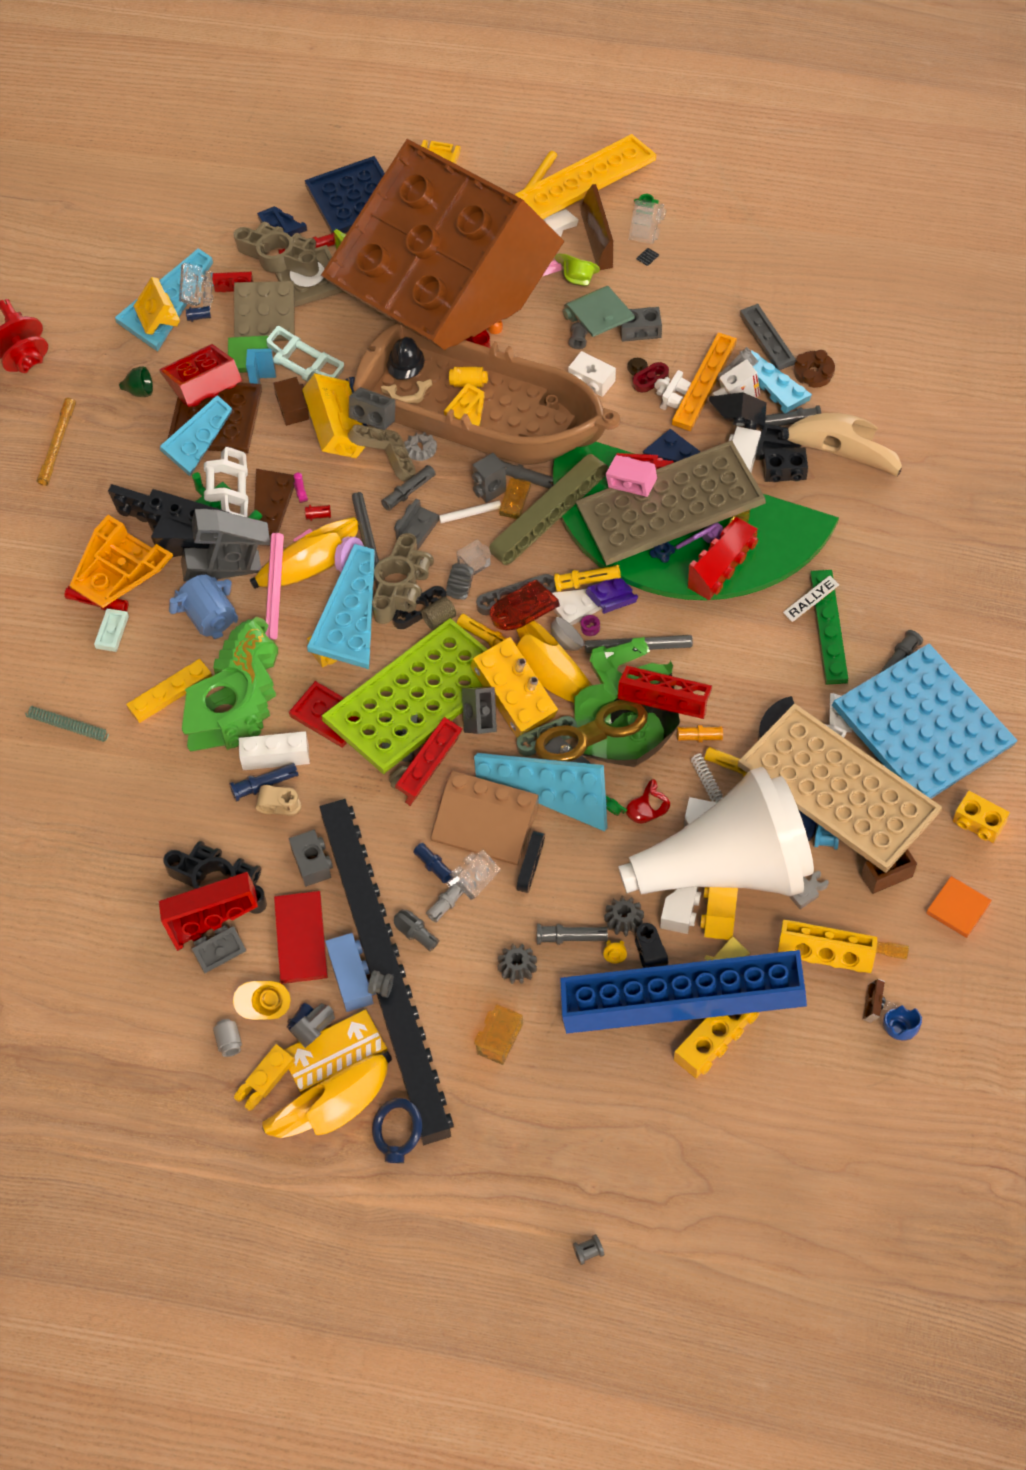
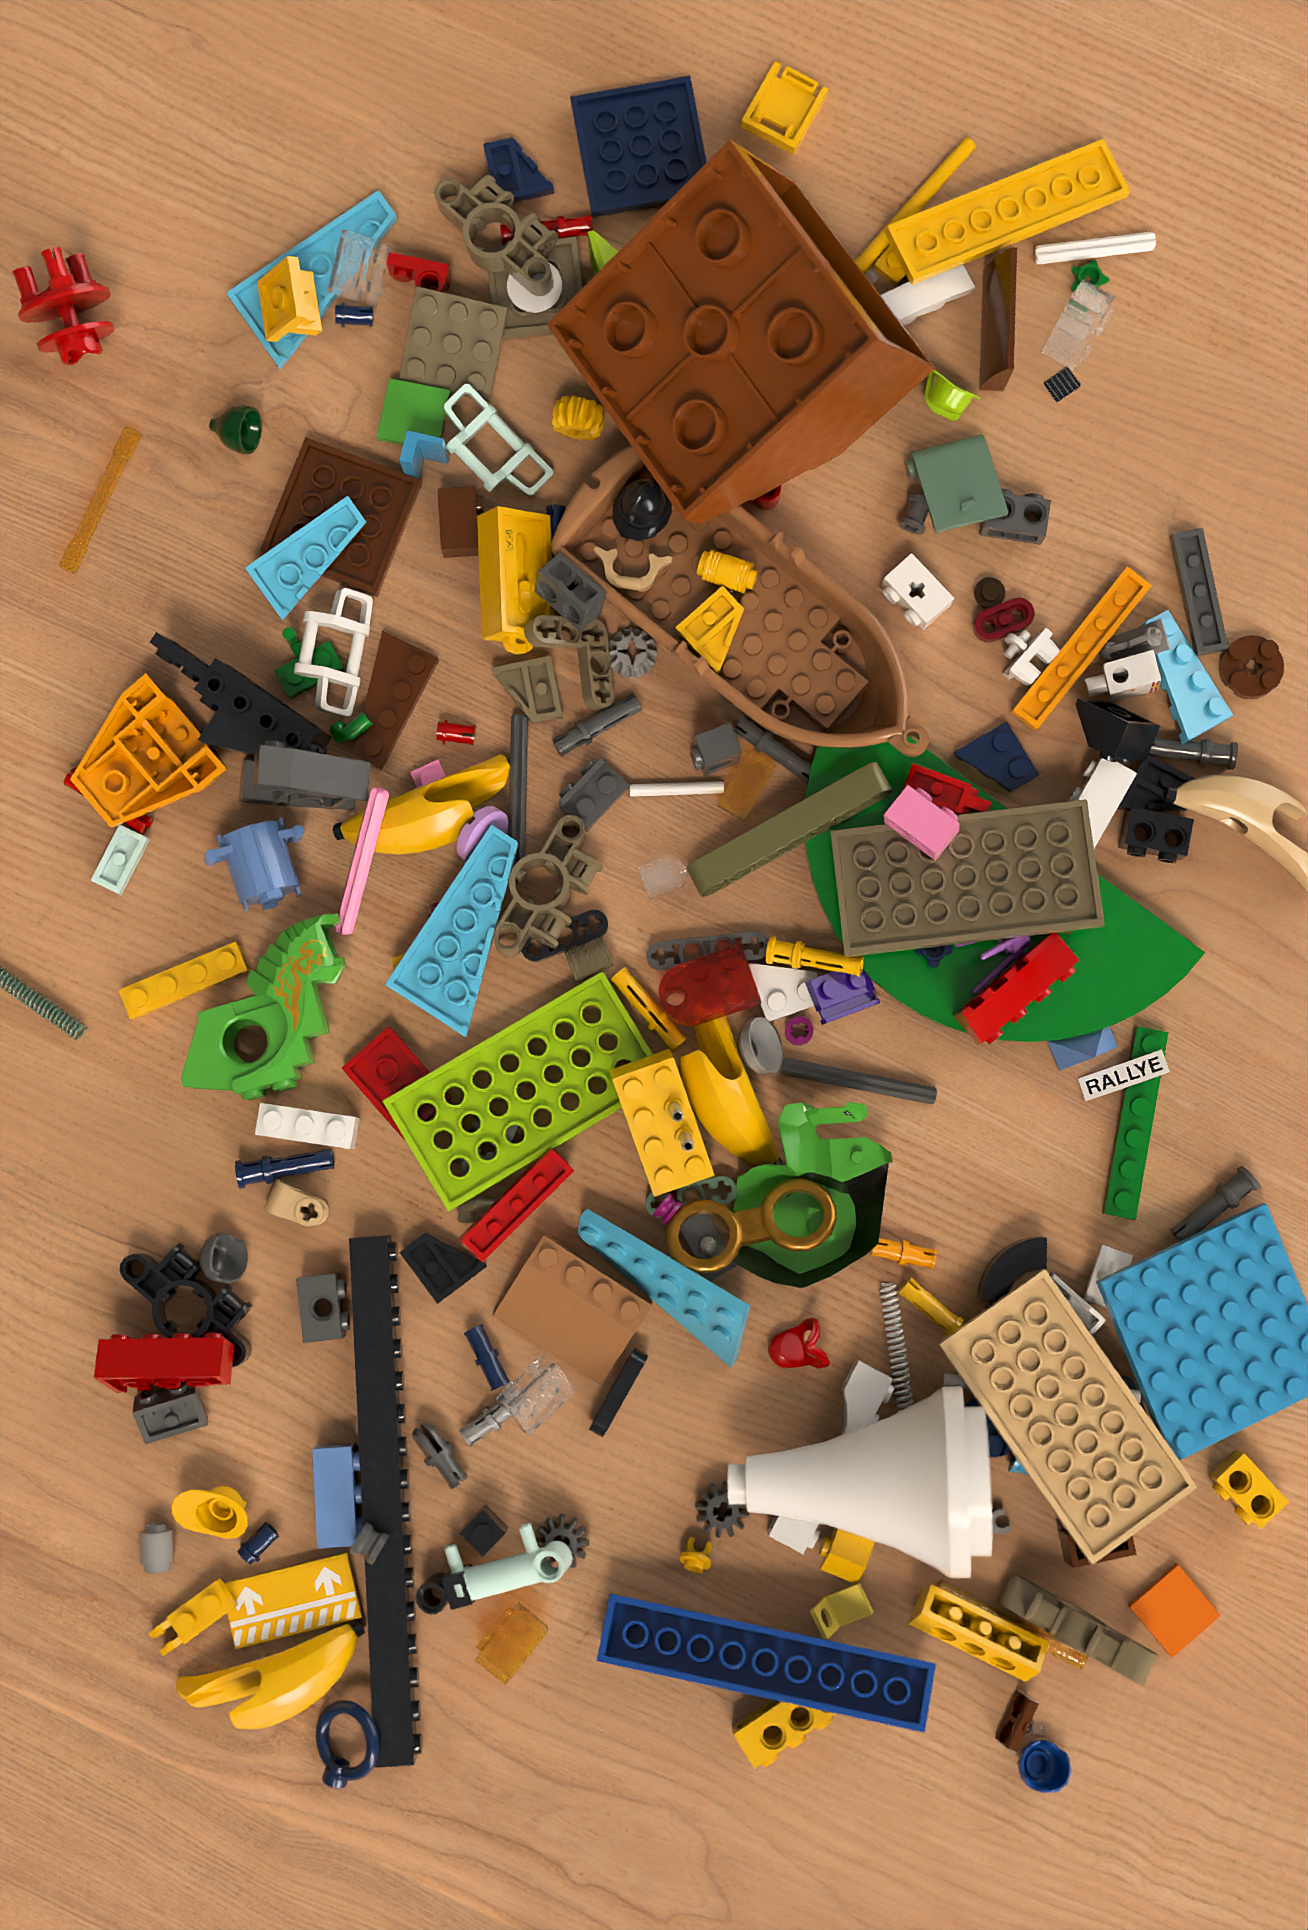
camera: 10 degrees right, 25 degrees up
(201, 375) = (331, 444): red slope -> none
(234, 843) = (223, 1258): none -> dark grey hair
(299, 487) = (437, 688): dark pink bar -> none
(300, 937) = (284, 1419): red tile -> none
(310, 1027) = (261, 1571): dark grey piece -> none
(352, 330) = (578, 418): none -> yellow gear
(360, 477) = (532, 688): none -> dark tan wing
(385, 815) = (440, 1266): none -> black wing
(458, 1001) = (467, 1583): none -> light aqua piece
(459, 581) = (630, 917): dark grey gear -> none
(460, 968) = (484, 1530): none -> black brick
(479, 710) = (604, 1147): dark grey brick -> none
(531, 737) = (667, 1208): none -> magenta bush
(559, 934) = (629, 1511): dark grey pin -> none
(614, 807) = (754, 1340): green plate -> none
(644, 187) = (1094, 248): none -> white axle
(650, 950) = (743, 1570): black piece -> none
(663, 695) = (862, 1205): red fence -> none
(779, 592) = (1081, 1048): none -> medium blue slope
(896, 923) = (1078, 1629): none -> dark tan piece

